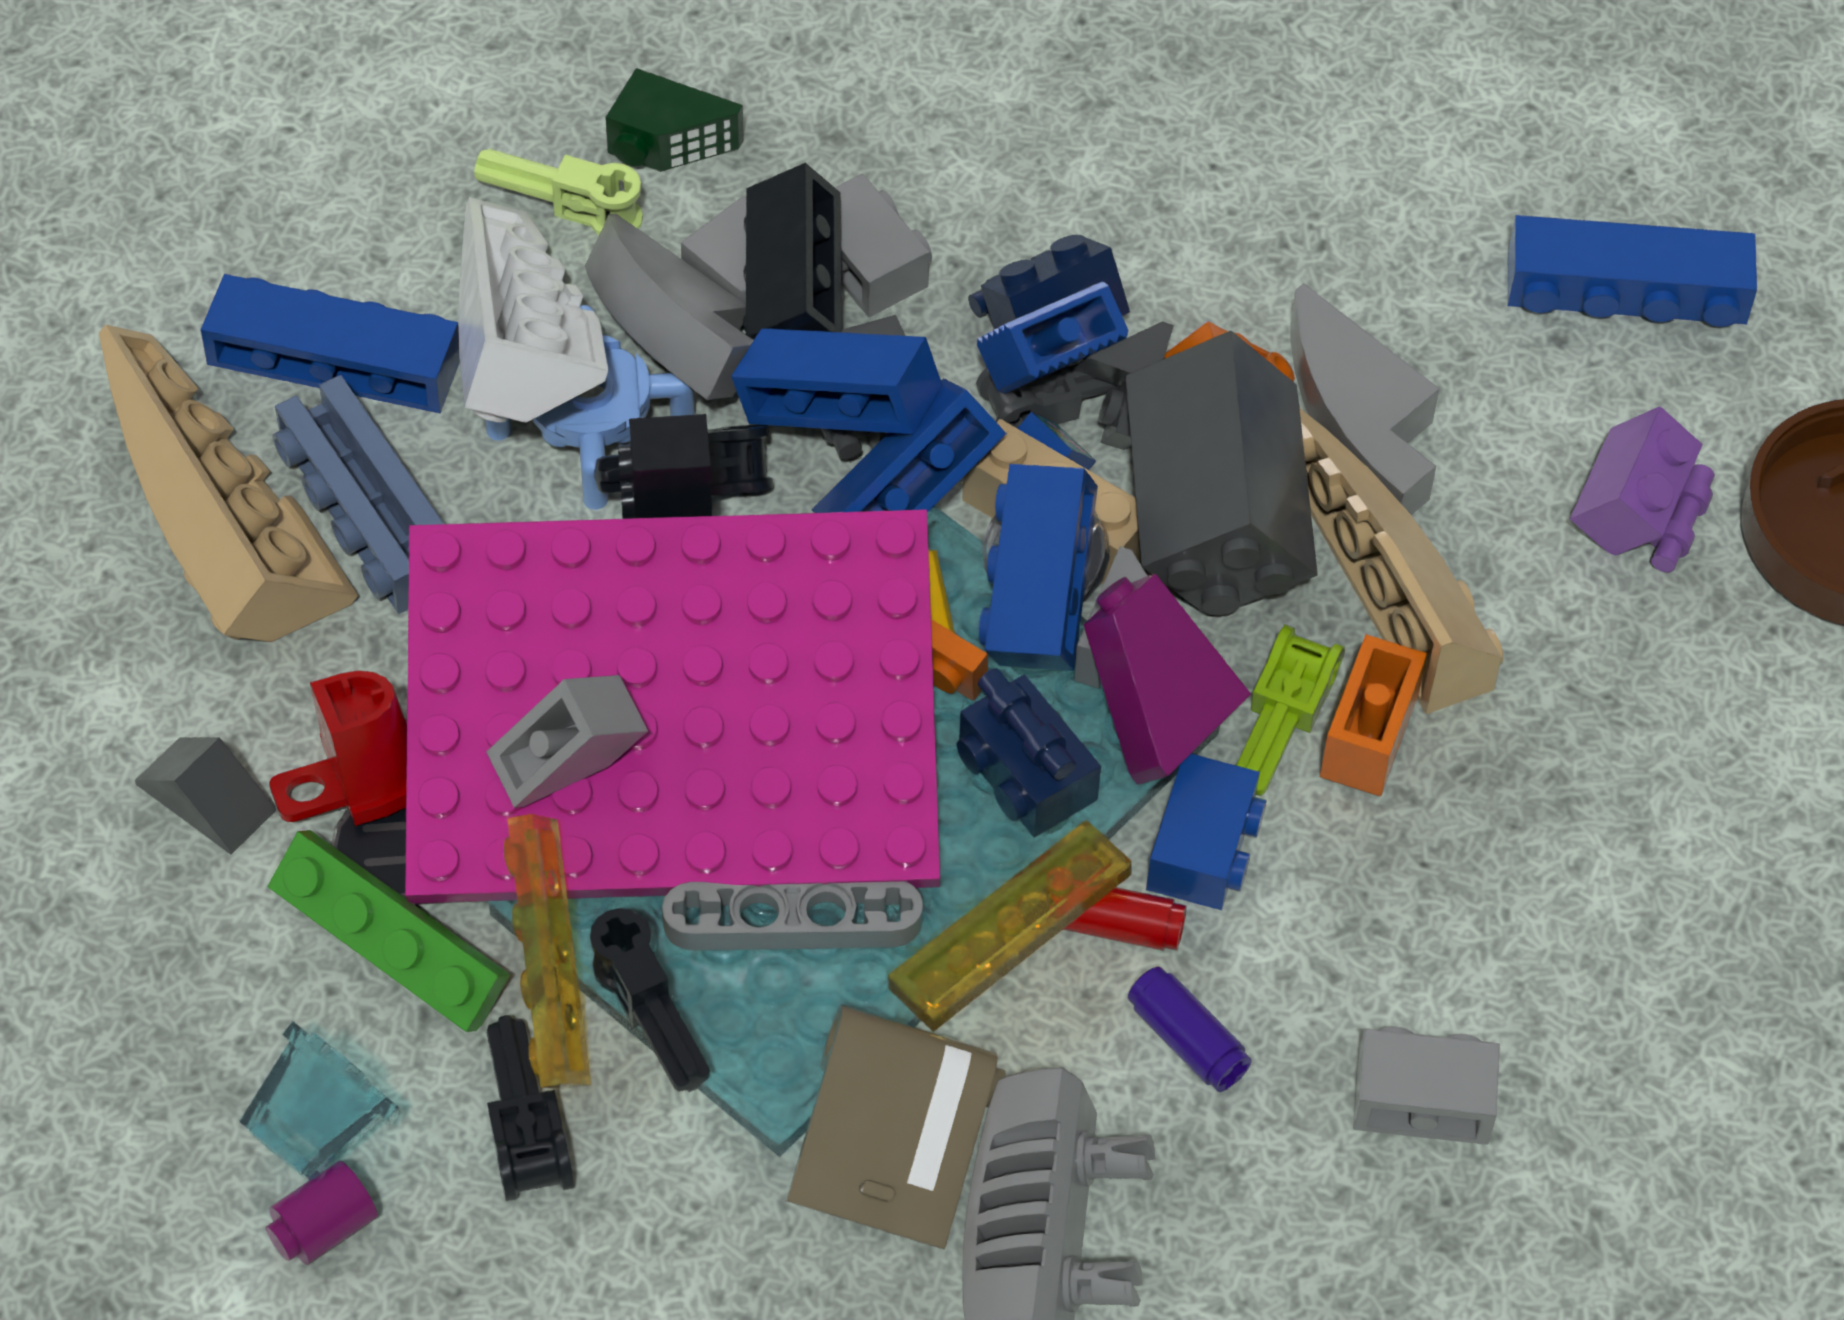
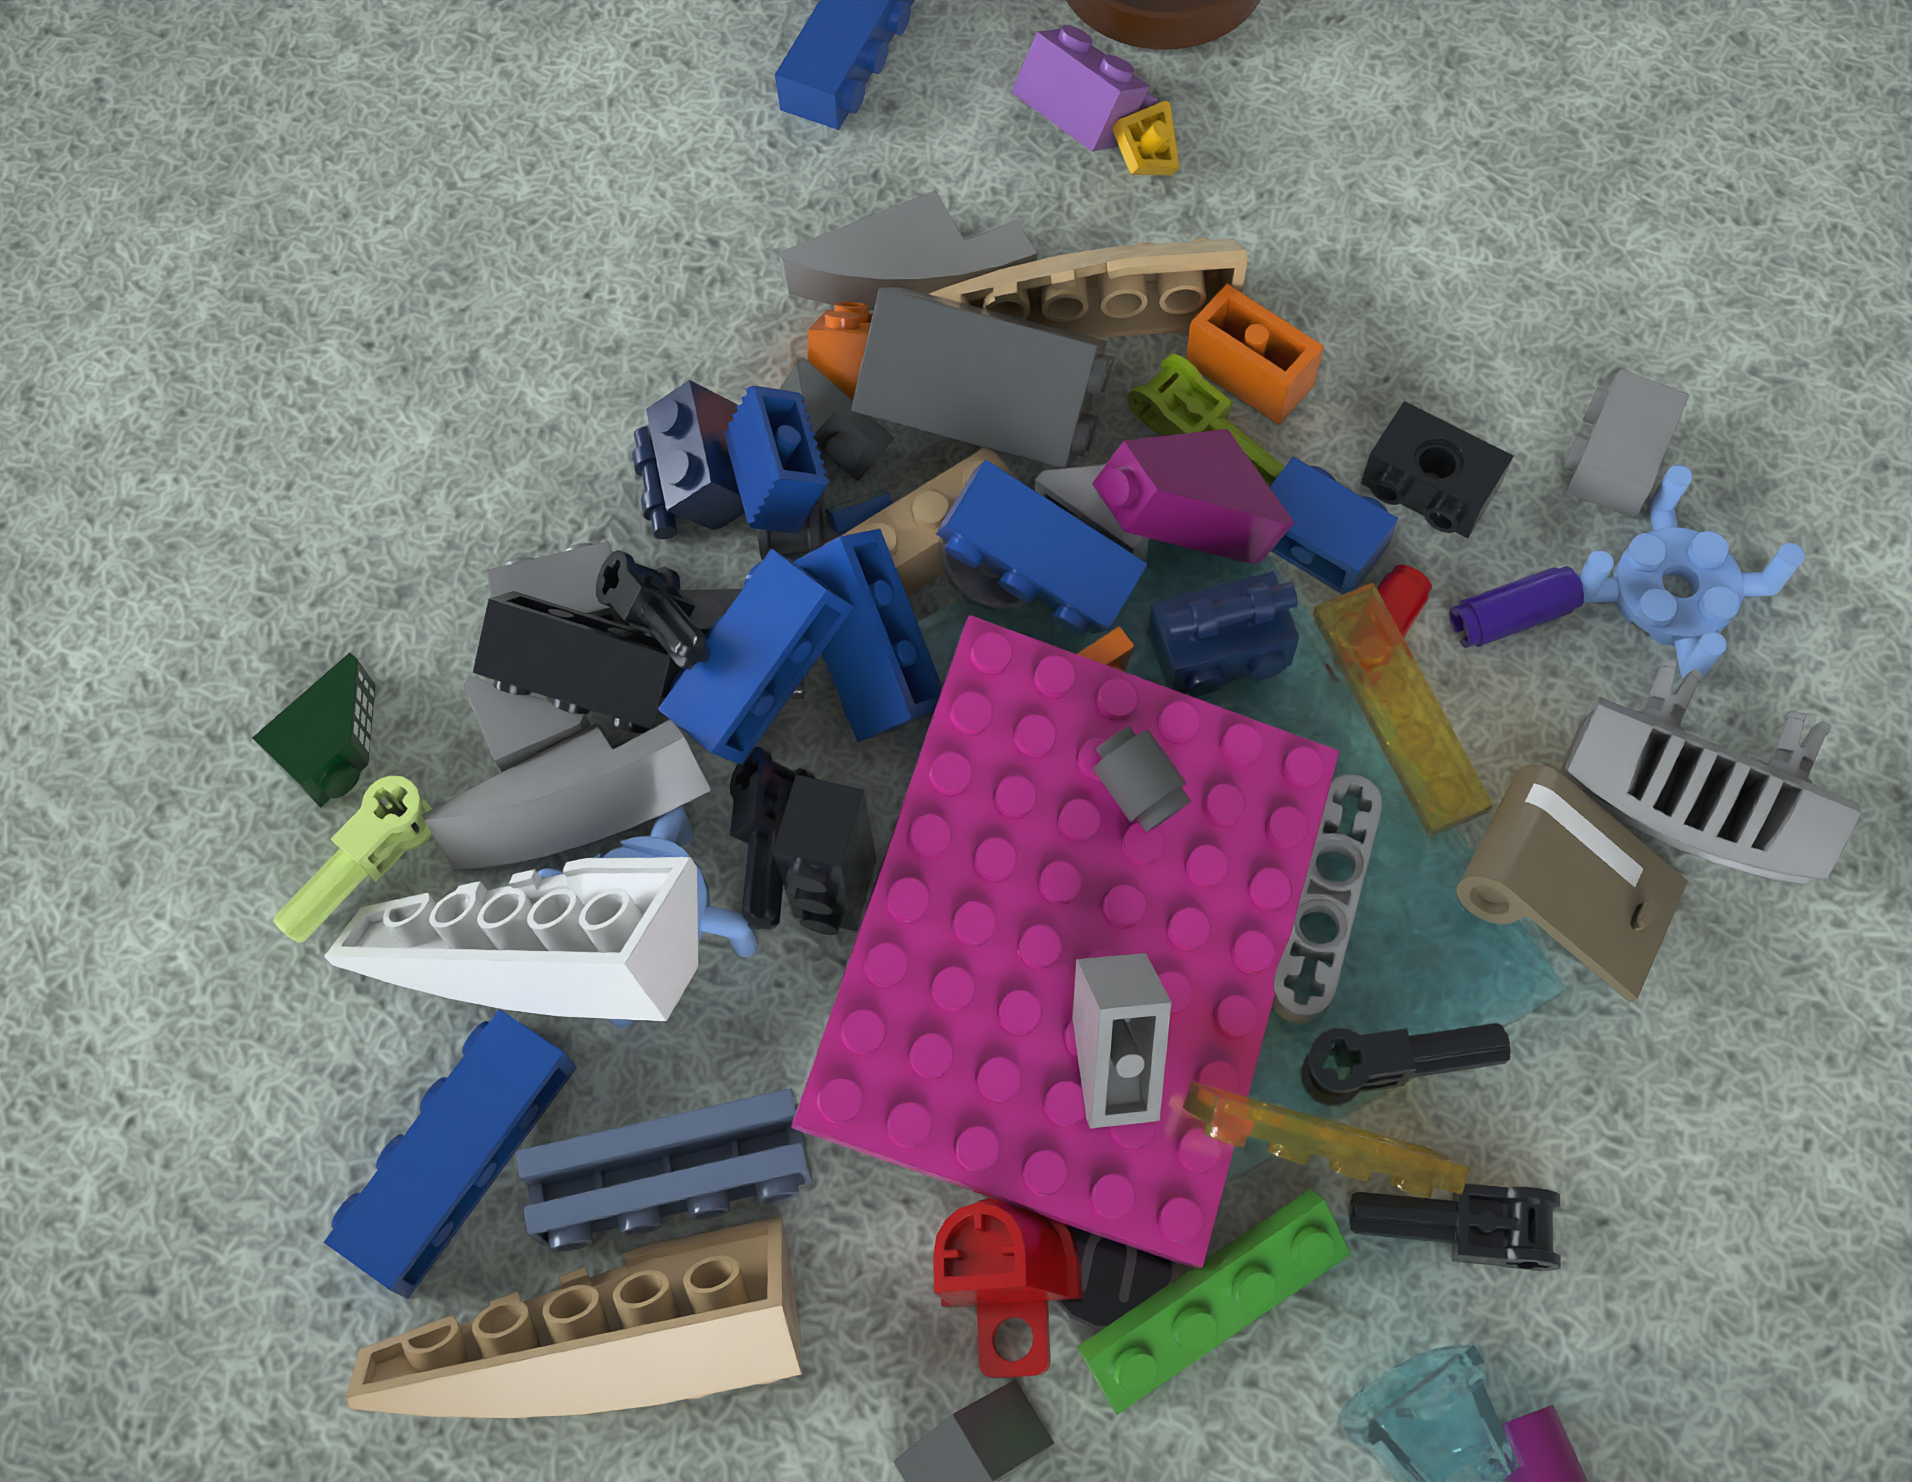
camera: 65 degrees left, 10 degrees up
(815, 685) = (1141, 778): none -> dark grey brick
(862, 295) = (653, 602): none -> black connector
(1287, 1139) = (1698, 557): none -> light blue plate
(1317, 882) = (1424, 443): none -> black brick
(1614, 567) = (1148, 141): none -> yellow piece

